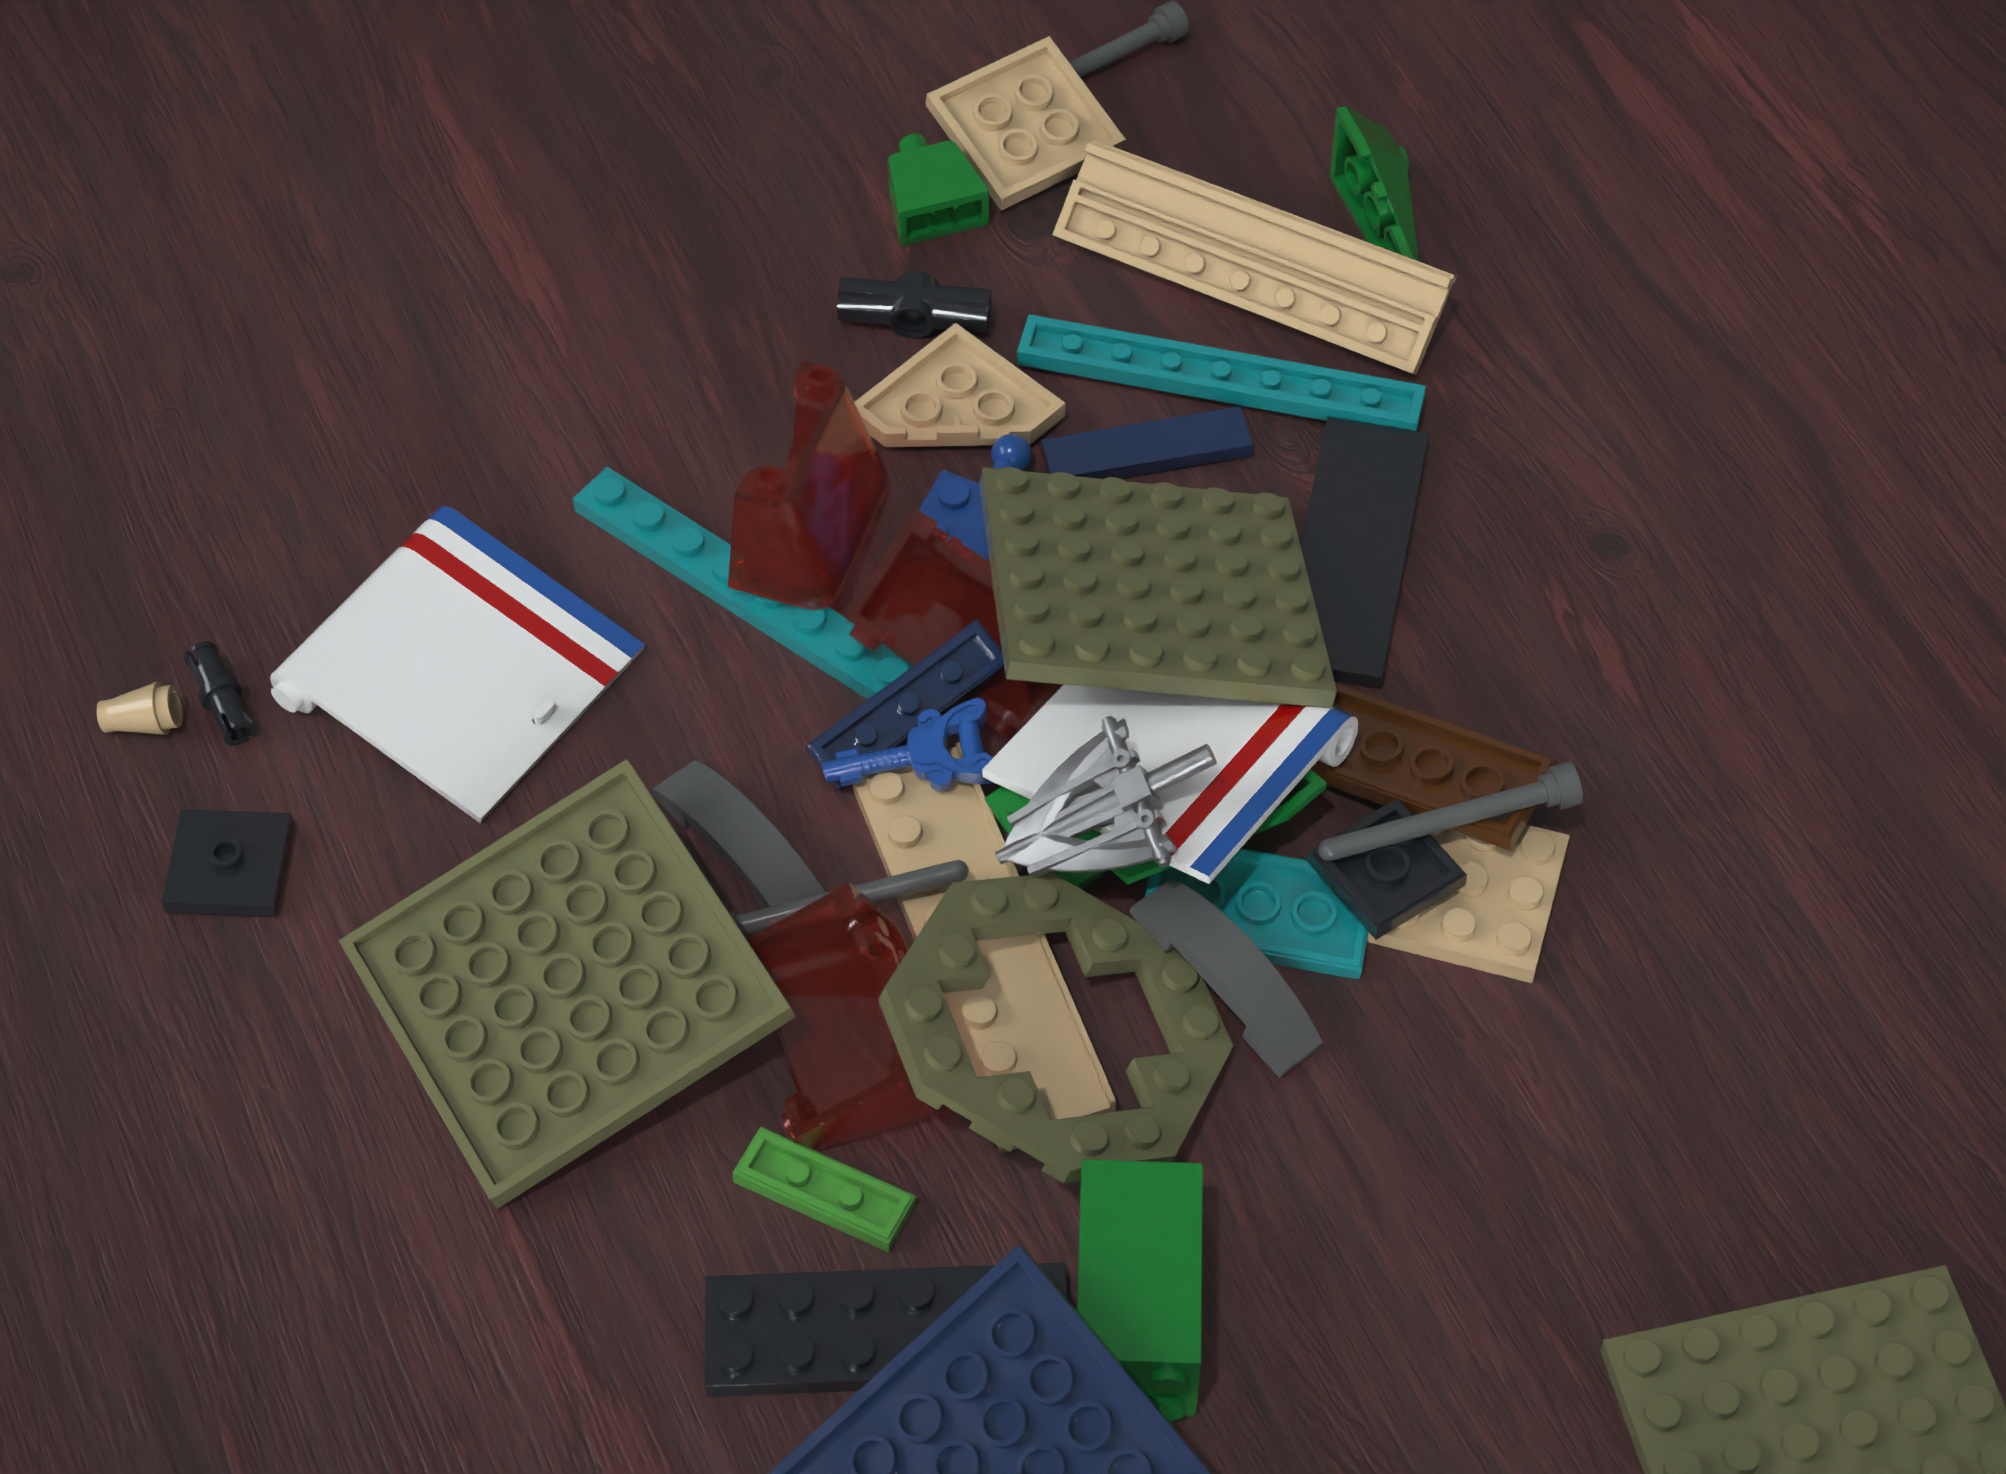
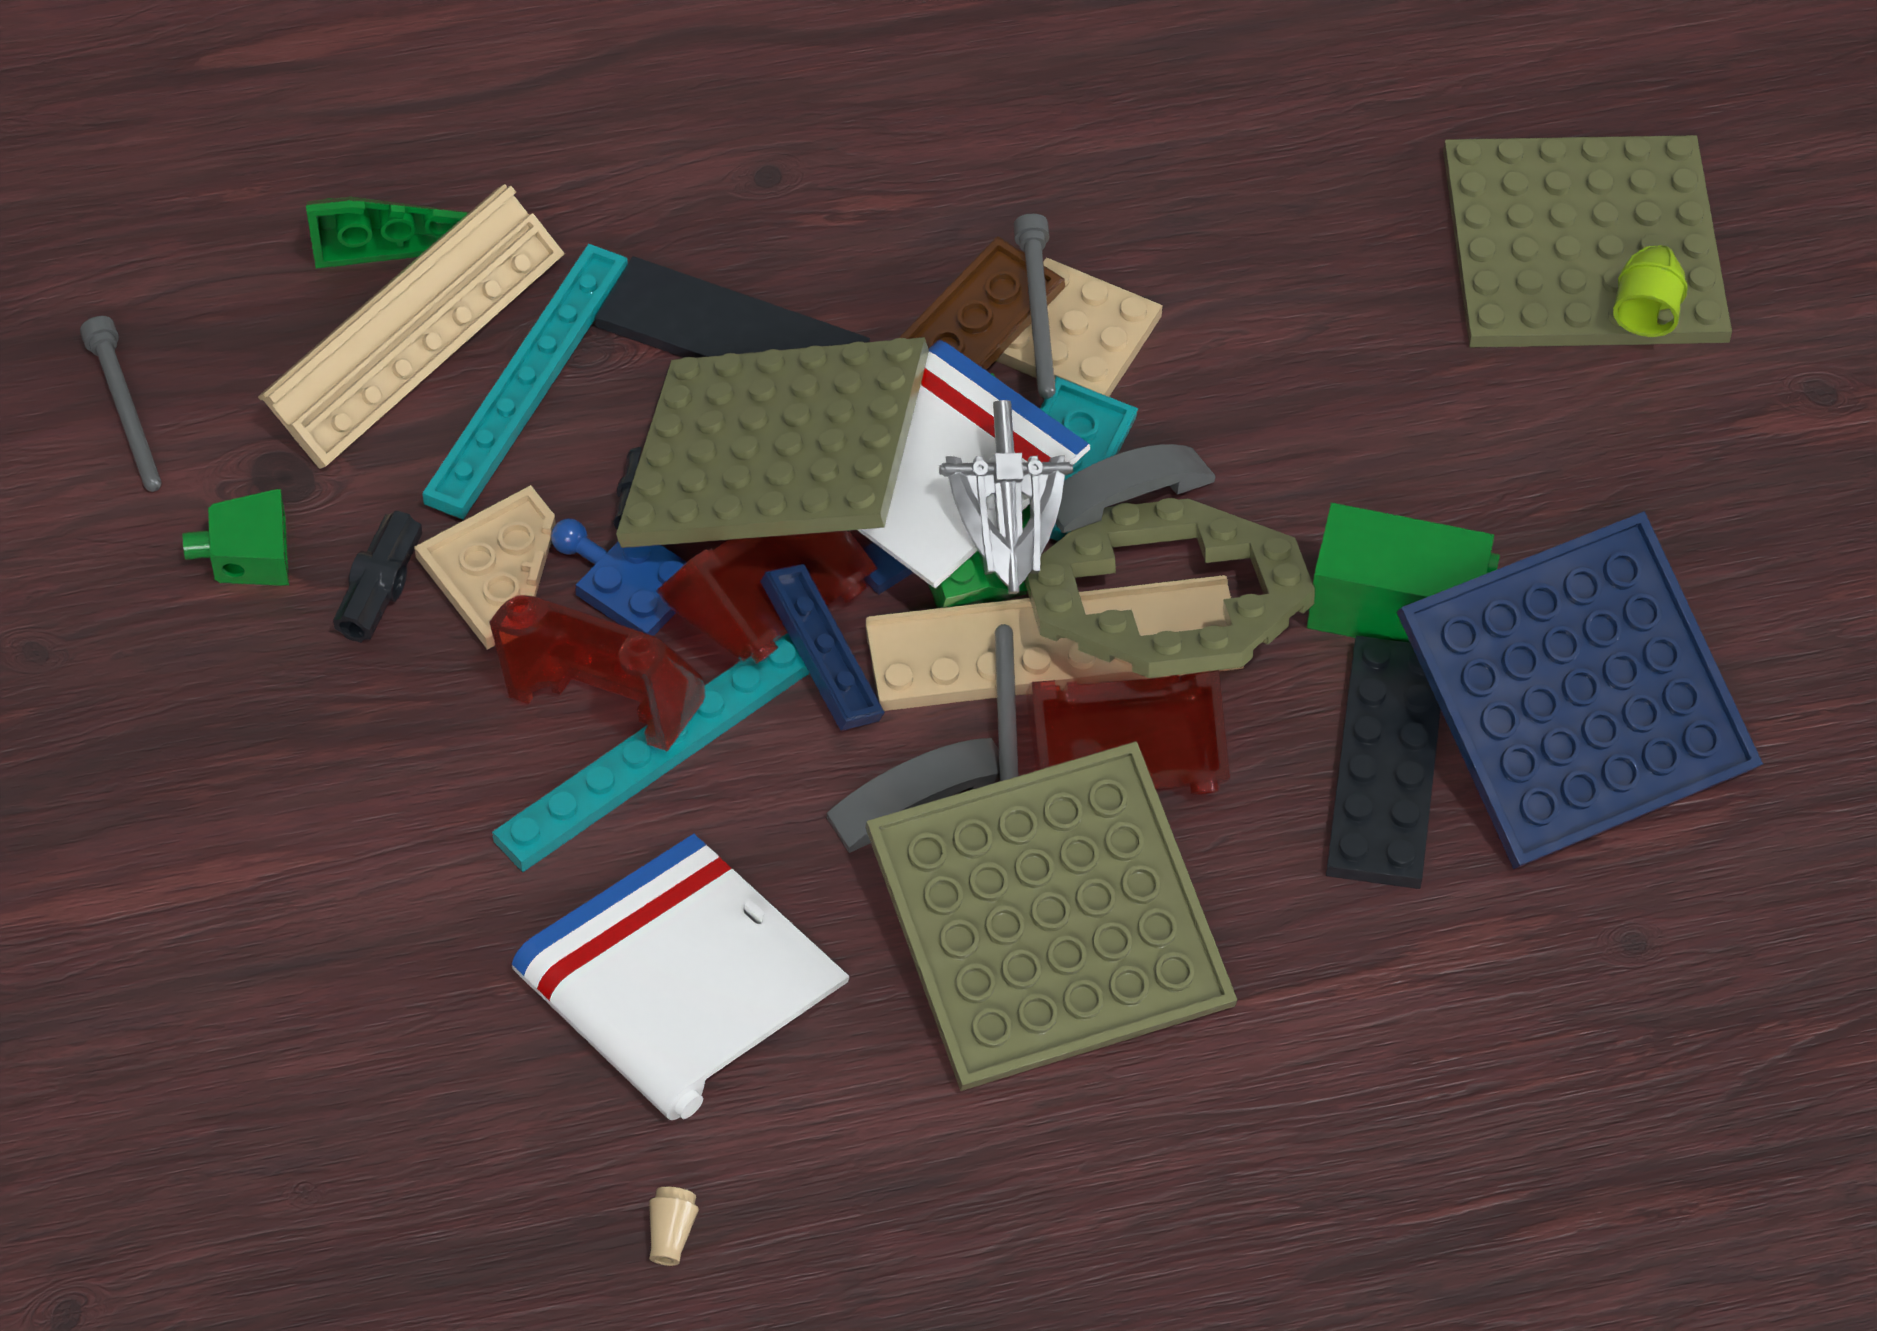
camera: 80 degrees left, 0 degrees up
(220, 693) = (666, 1160): black pin -> none
(228, 863) = (849, 1172): black plate -> none
(824, 1189) = (1258, 783): bright green tile -> none
(925, 751) = (880, 636): blue piece -> none
(1023, 121) = (191, 454): tan plate -> none
(1150, 445) = (585, 447): dark blue tile -> none
(1392, 881) = (1078, 365): black tile -> none

